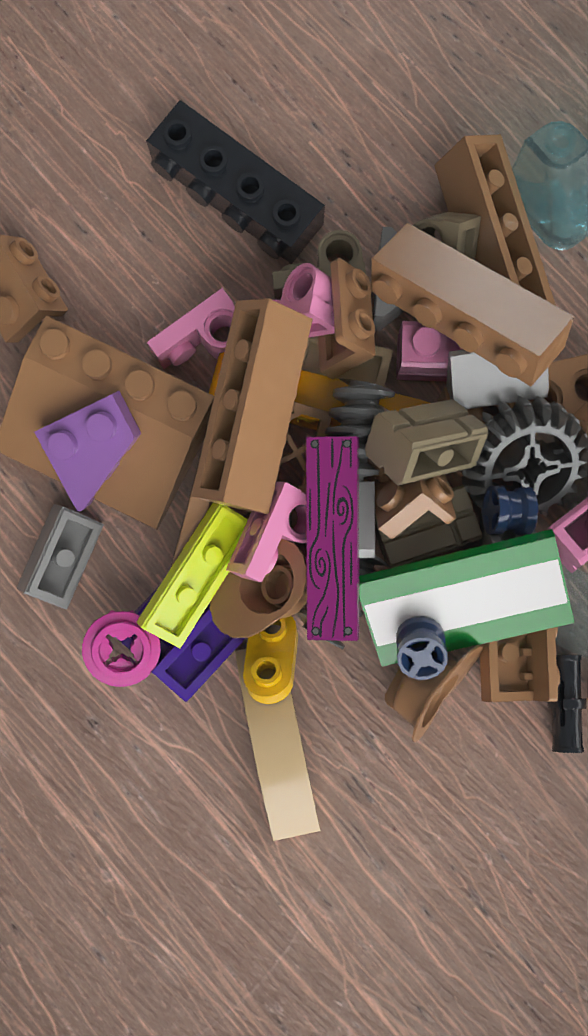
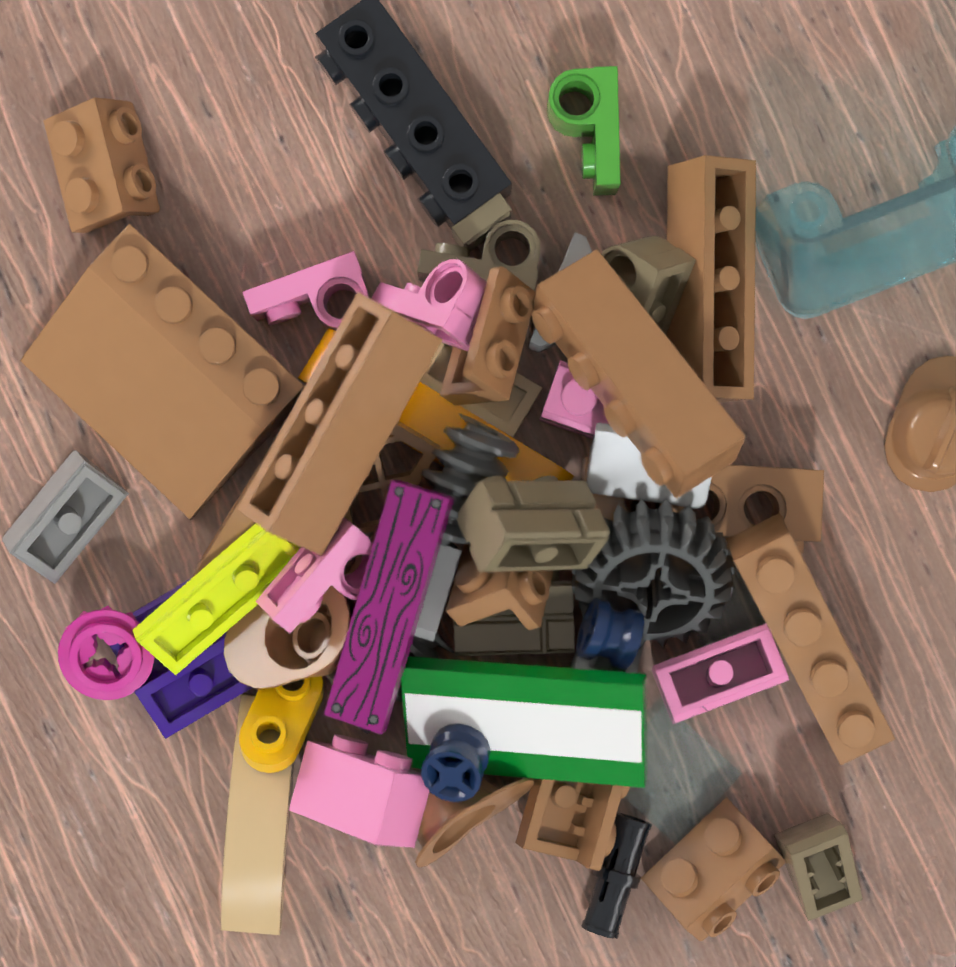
camera: 15 degrees right, 5 degrees up
(89, 446) = (136, 398): medium lavender wing -> none
(306, 247) = (475, 227): none -> dark tan tile
(352, 696) = (361, 792): none -> bright pink brick
(372, 153) = (601, 123): none -> bright green plate

